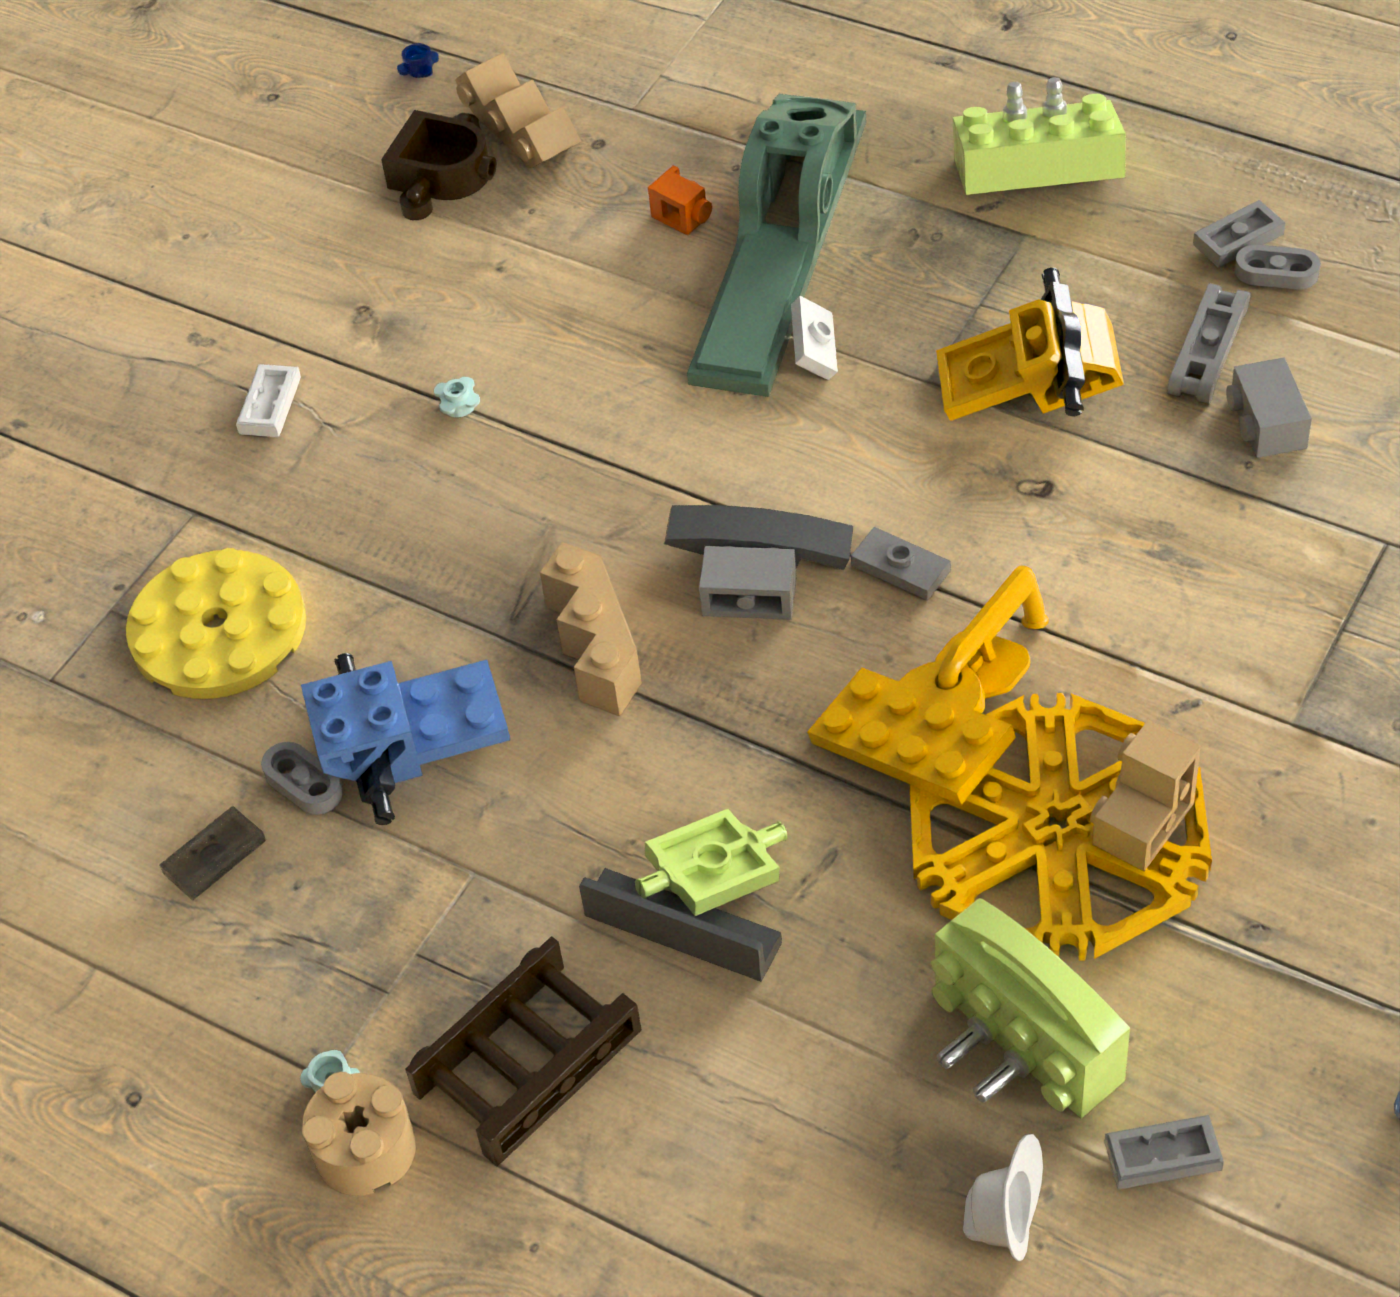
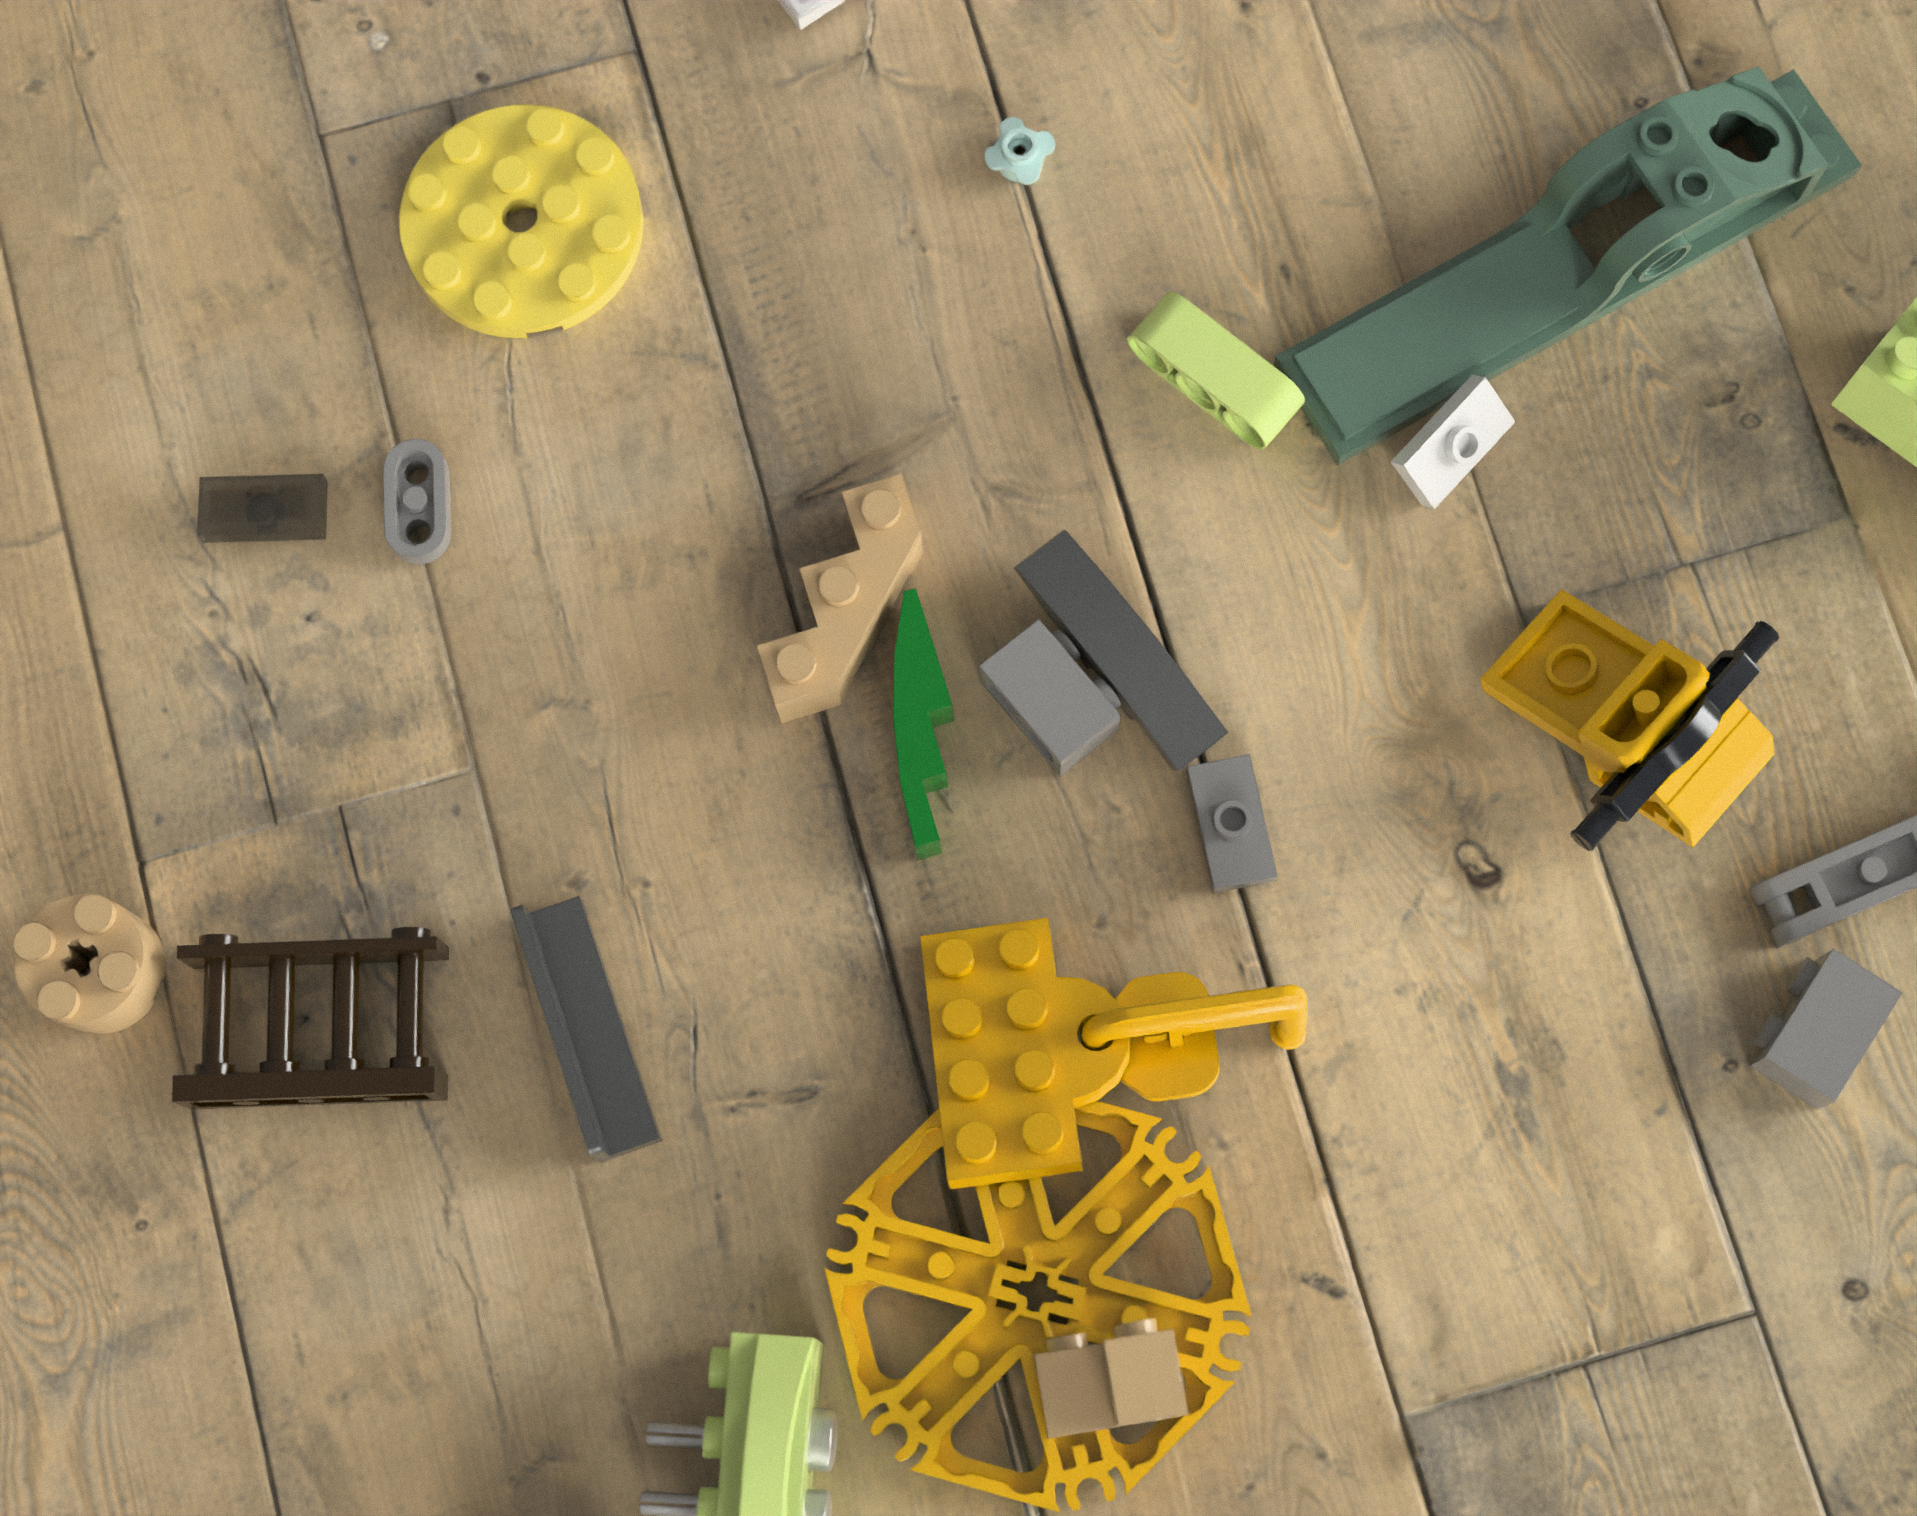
camera: 45 degrees right, 25 degrees up
(322, 1067) = (122, 857): light aqua plate -> none
(385, 729) = (544, 531): medium blue piece -> none
(664, 399) = (1216, 370): none -> yellowish green beam
(678, 201) = (1514, 102): orange brick -> none
(684, 639) = (918, 706): none -> green slope
(711, 861) = (672, 997): yellowish green plate -> none

